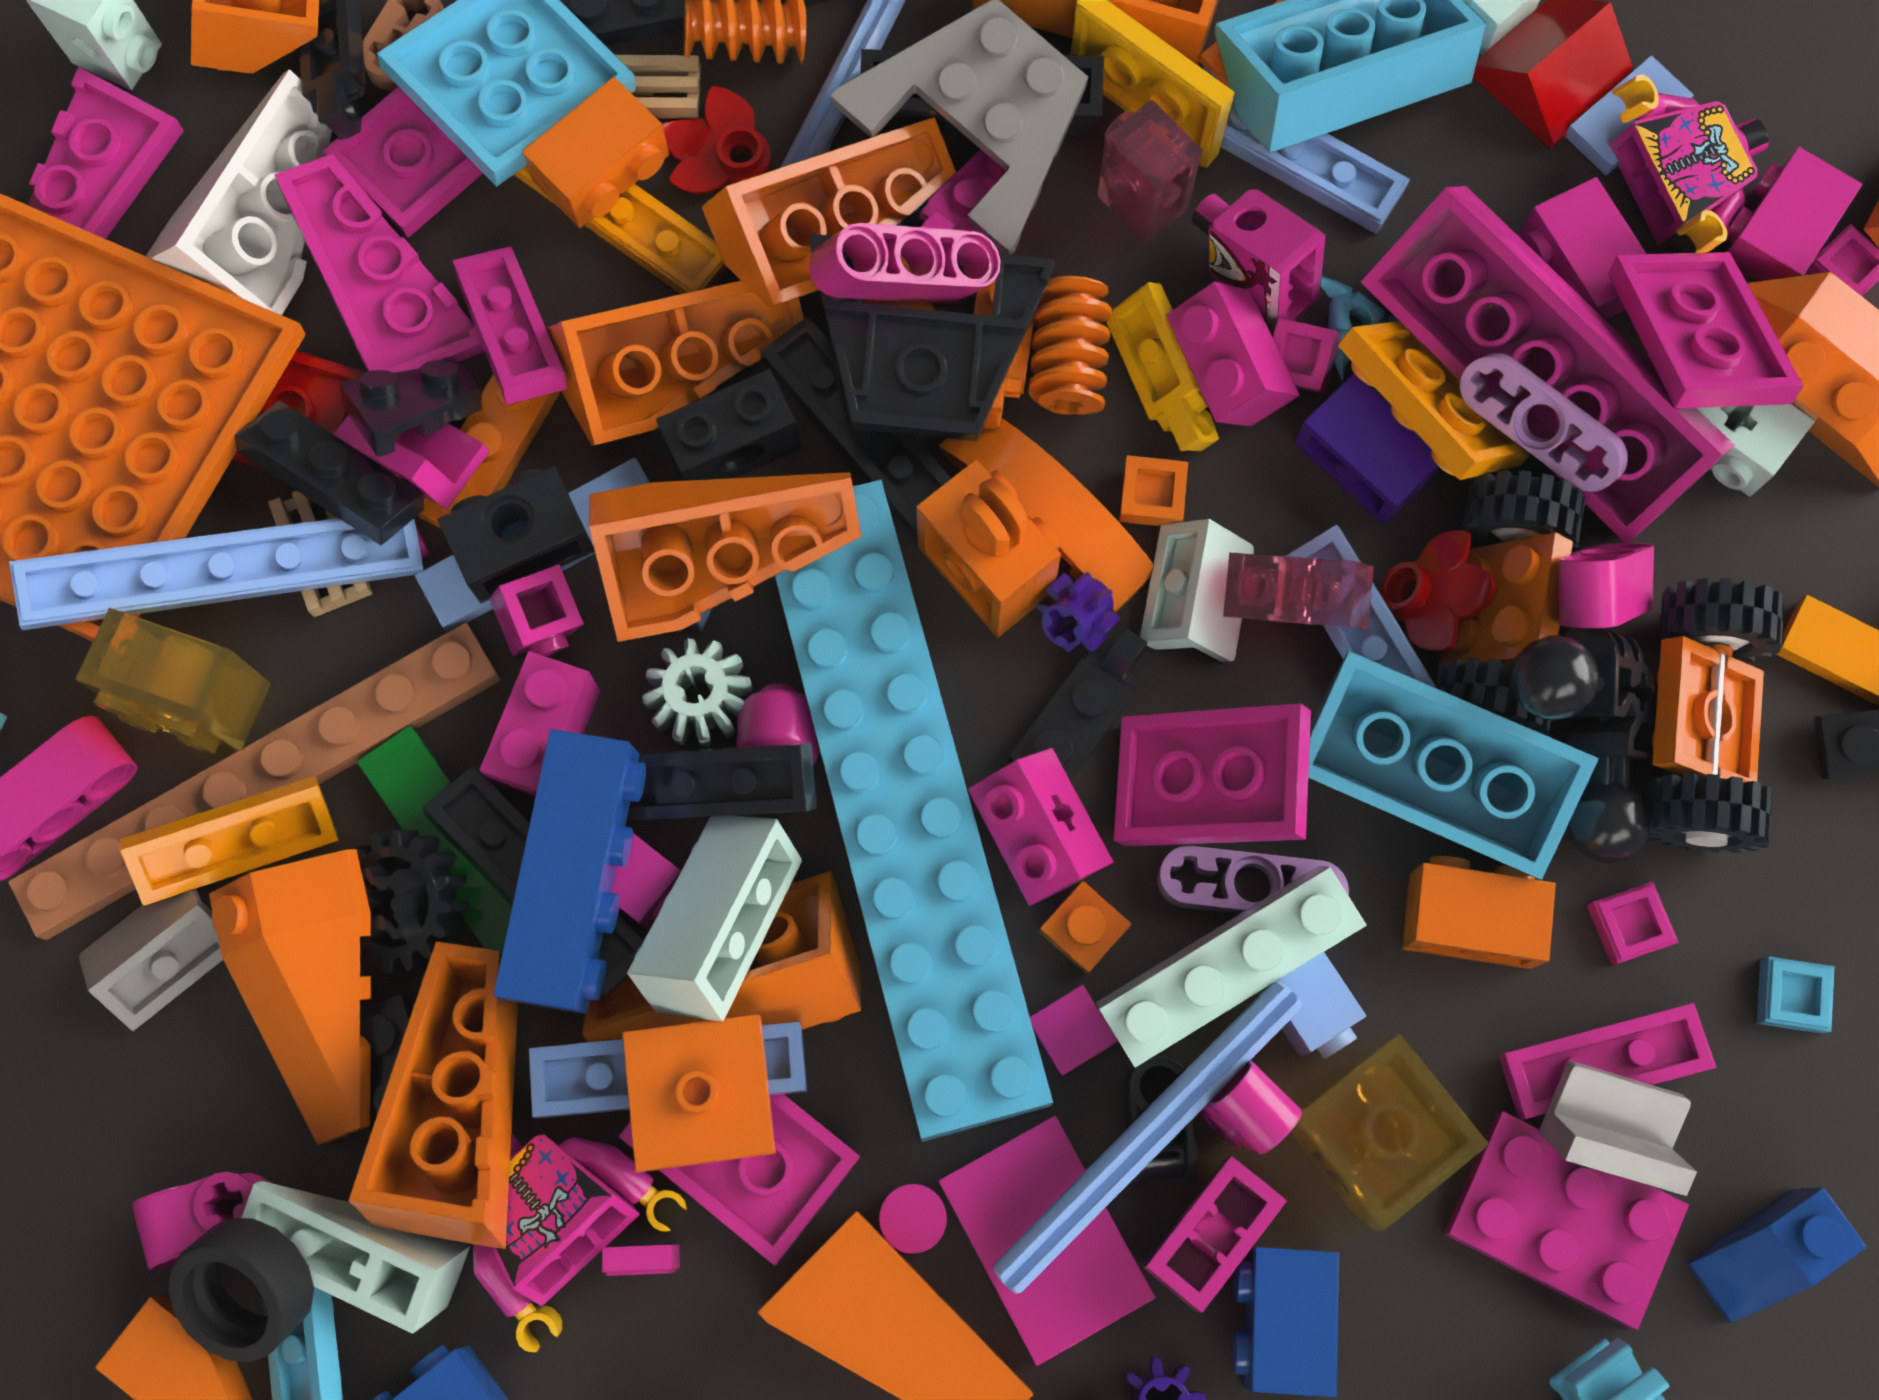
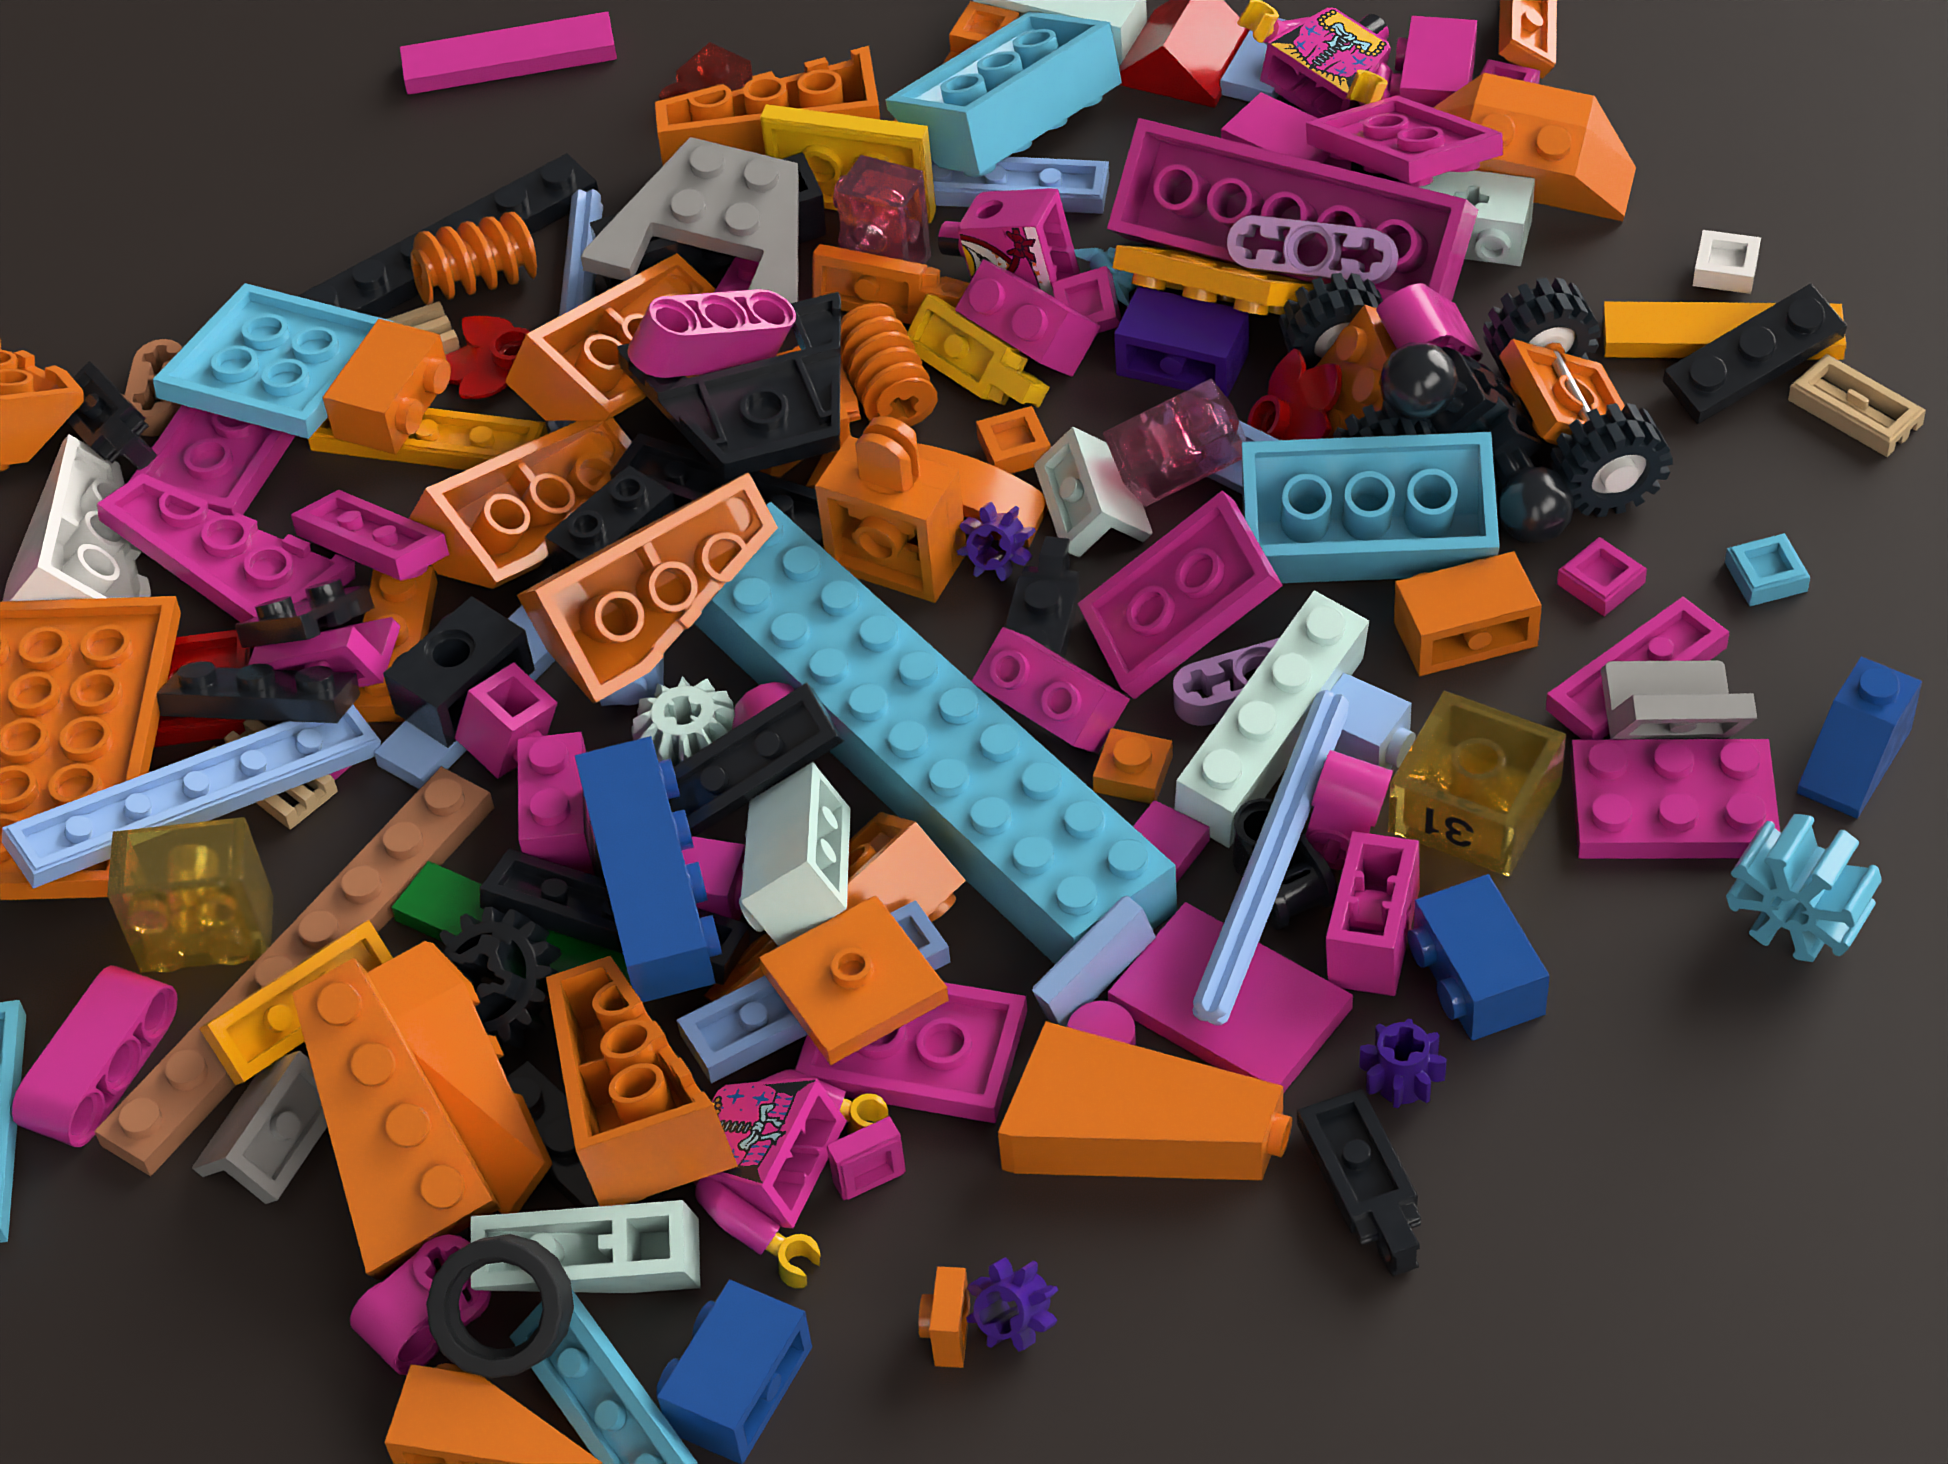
camera: 20 degrees left, 25 degrees down
(224, 1044) = (388, 1130): none -> orange wedge
(934, 1155) = (1094, 961): none -> light blue tile
(1119, 240) = (880, 280): none -> orange hinge

